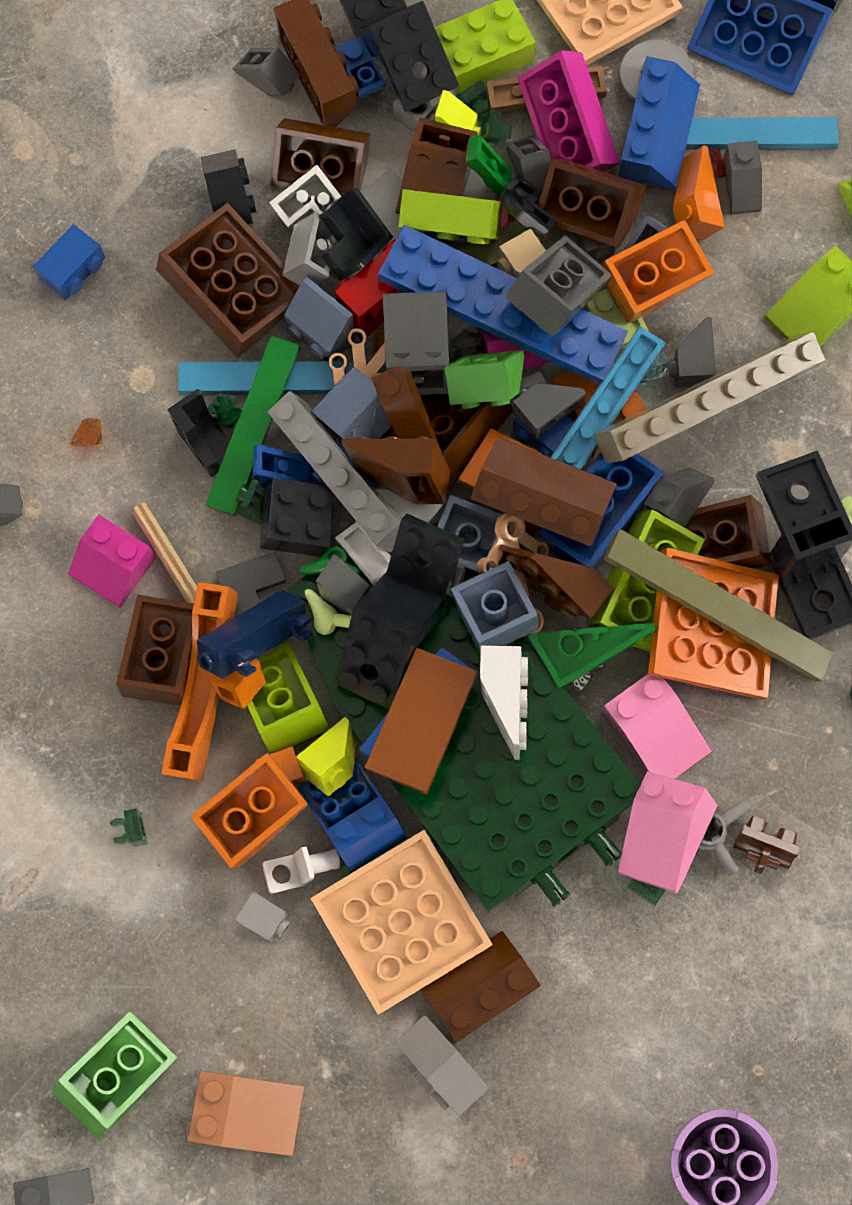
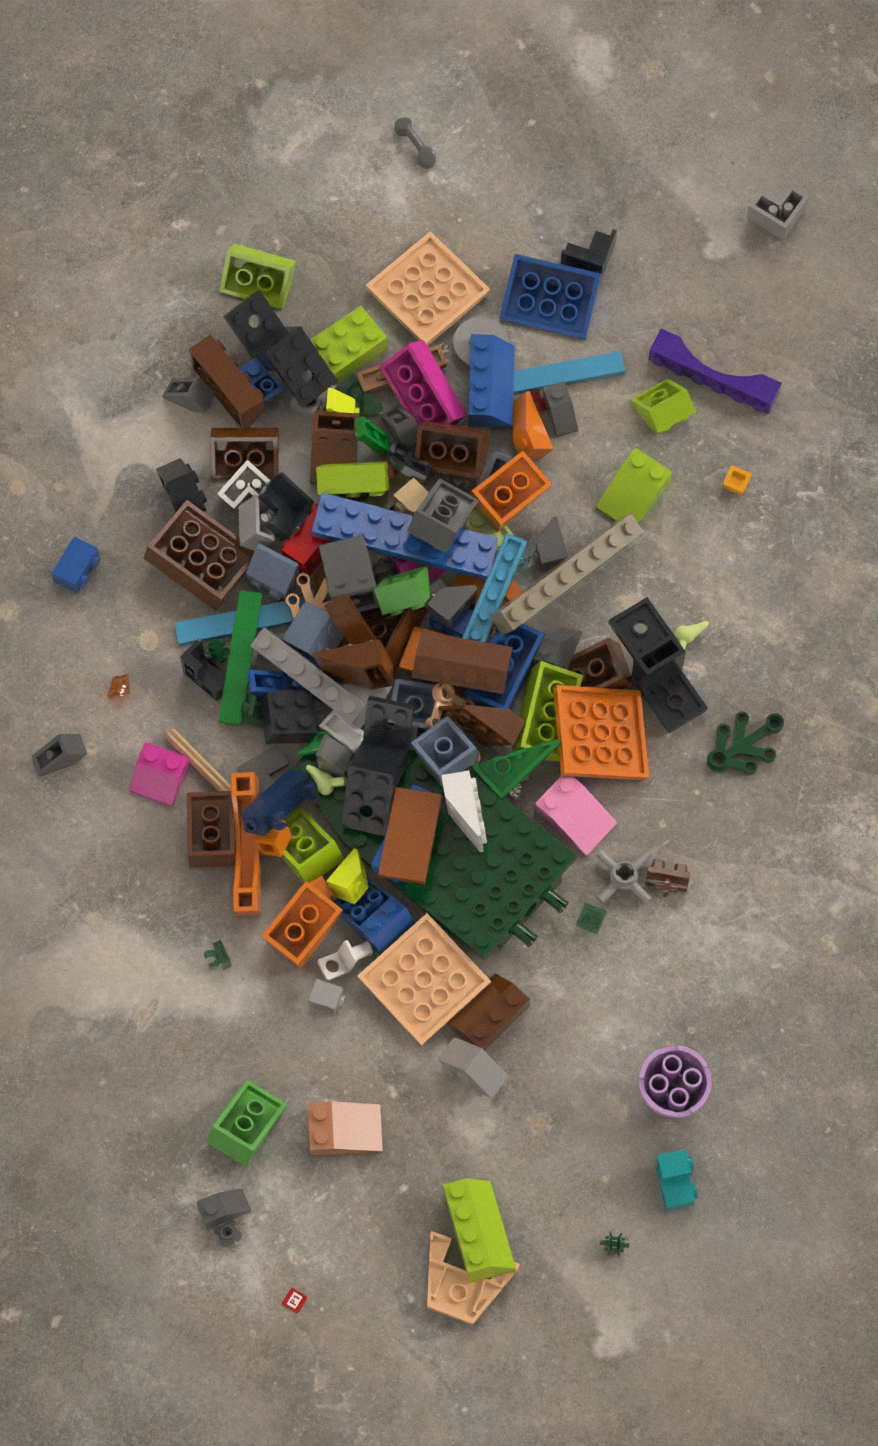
camera: 15 degrees left, 5 degrees down
(665, 831) = (594, 878): bright pink slope -> none
(717, 605) = (601, 718): olive tile -> none

